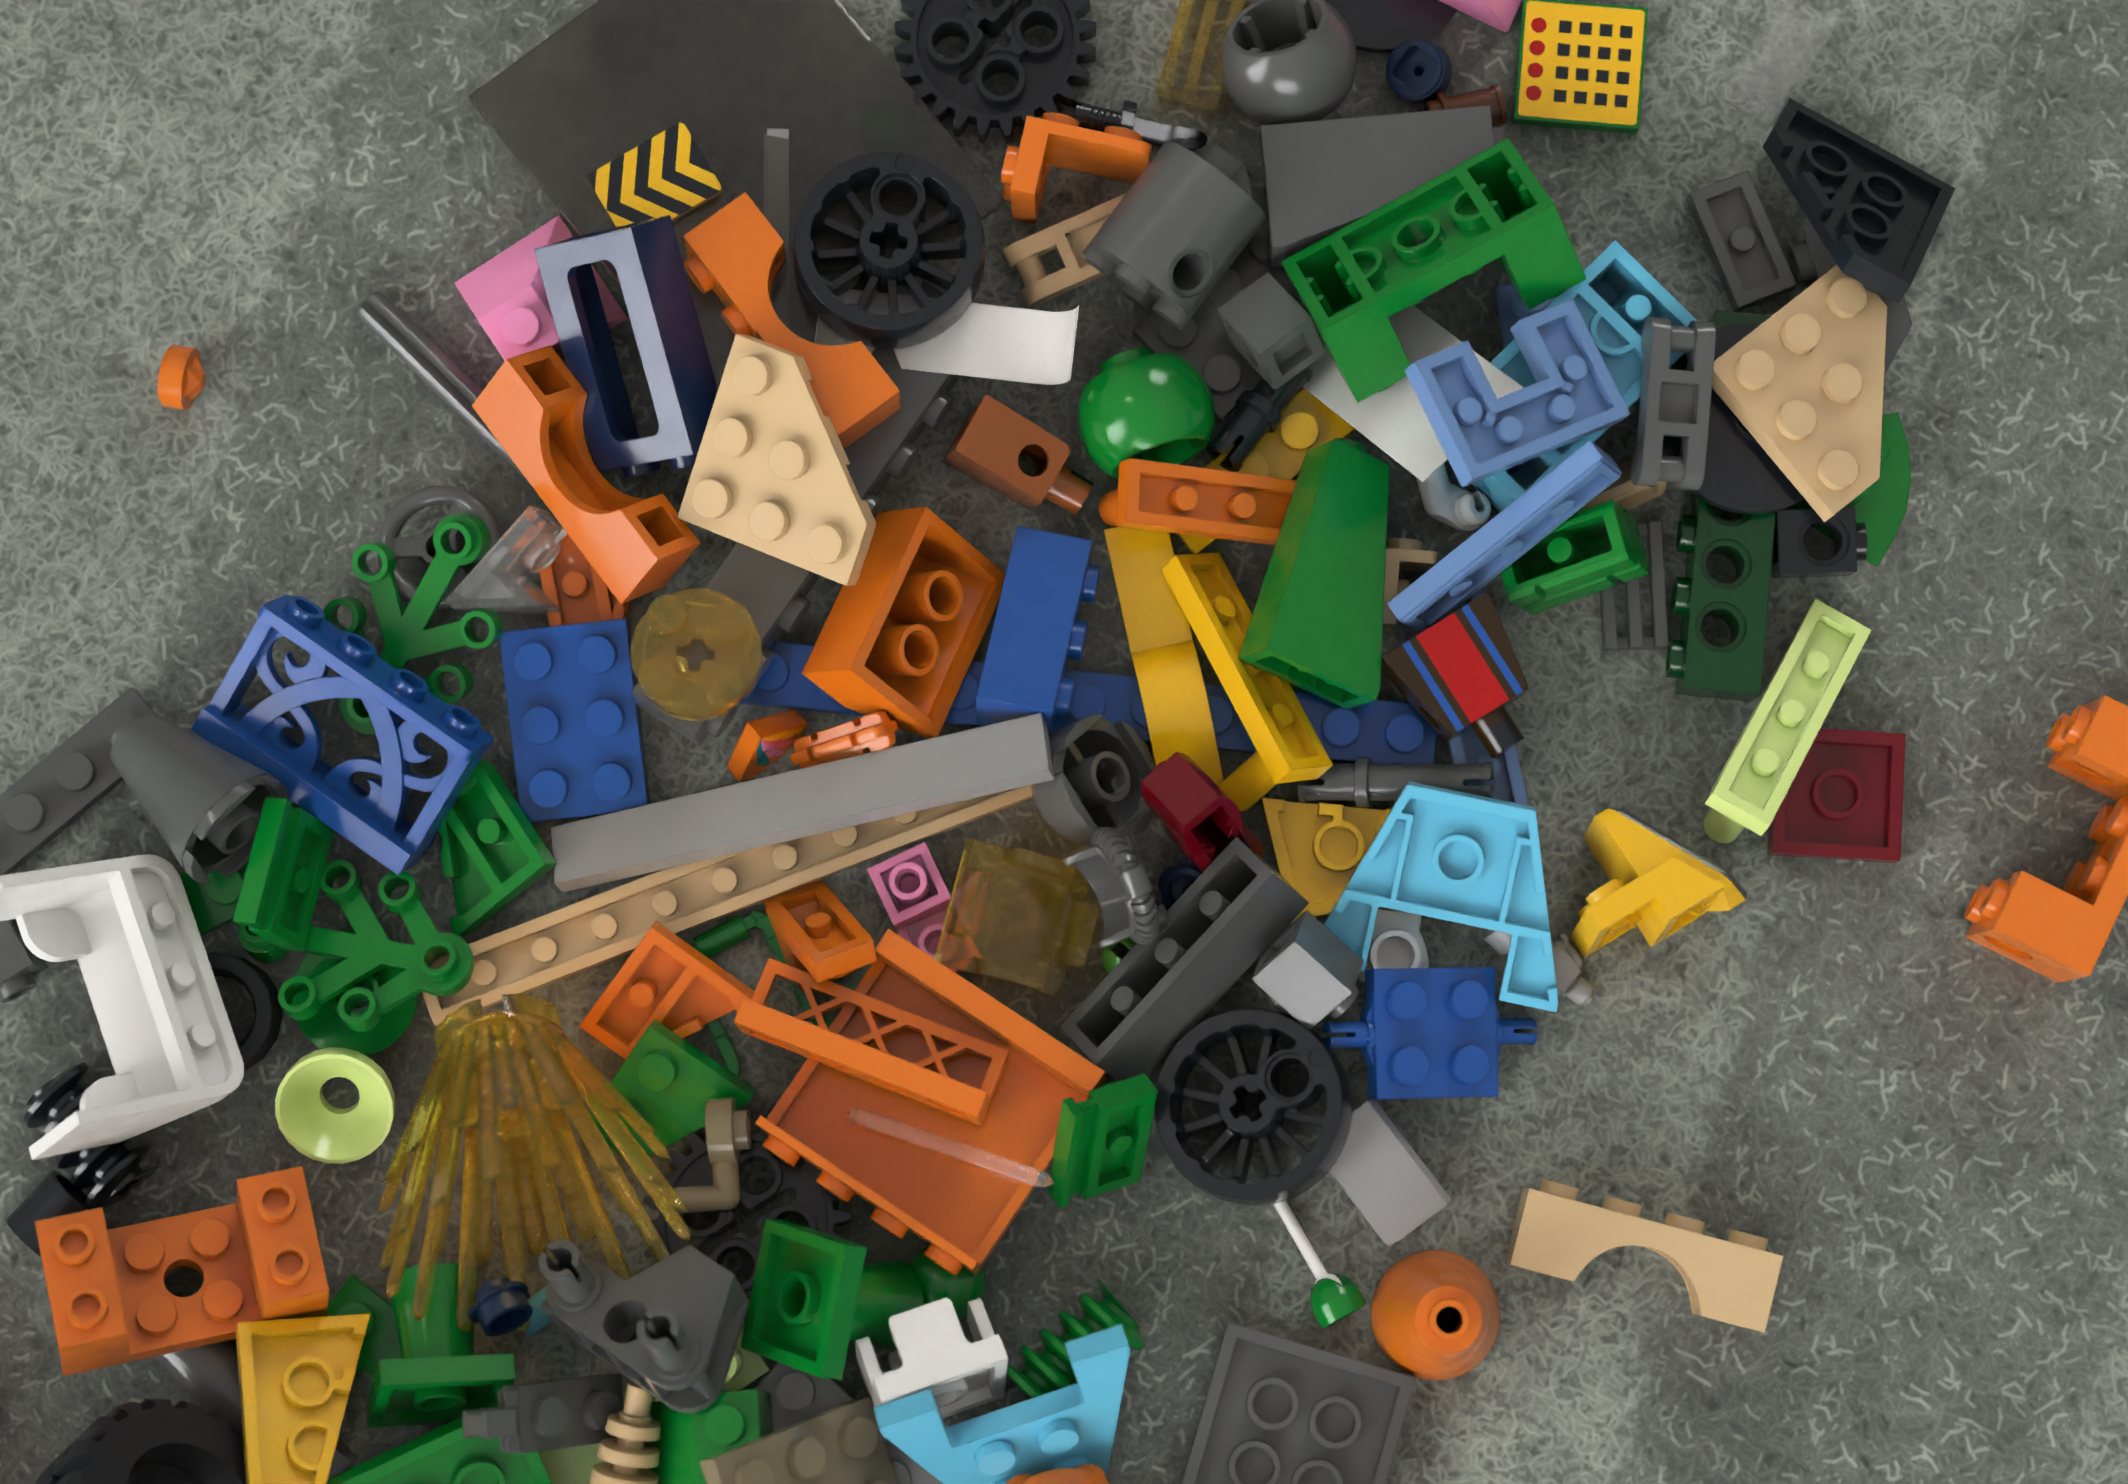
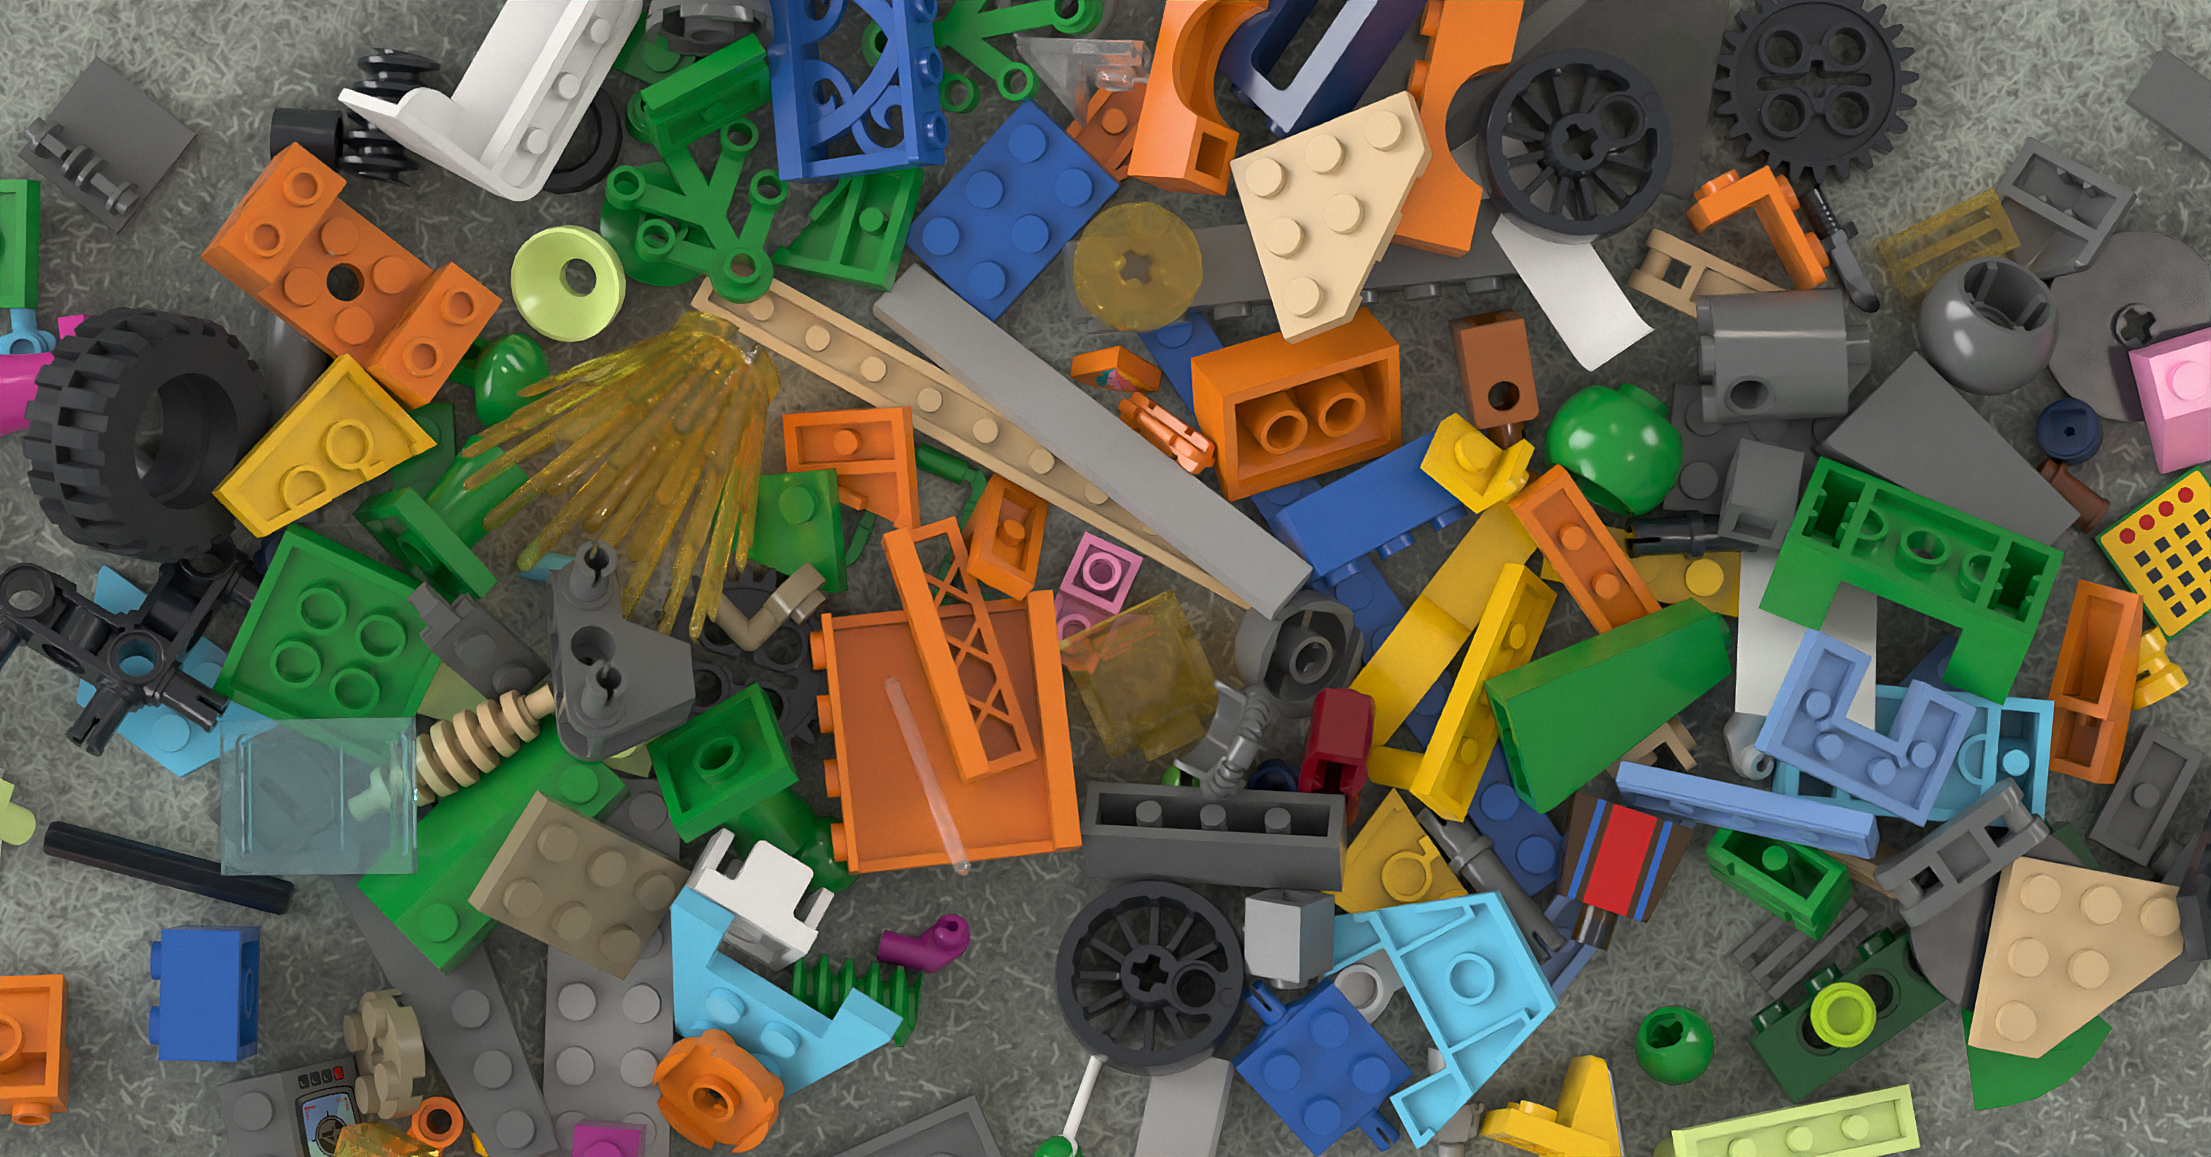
camera: 45 degrees right, 5 degrees up
(354, 1218) = (499, 372): none -> green piece
(501, 1306) = (525, 539): dark blue plate -> none
(1068, 528) = (1474, 466): none -> yellow bracket
(1088, 1261) = (931, 949): none -> magenta arm
(1102, 1139) = (1030, 885): green plate -> none
(1624, 200) = (2095, 682): none -> orange slope
(1631, 158) = (2163, 675): none -> yellow wheel
(1638, 749) = (1674, 1045): none -> green piece
(1722, 599) = (1843, 1014): none -> lime plate
(1793, 560) = (1930, 1030): black brick -> none

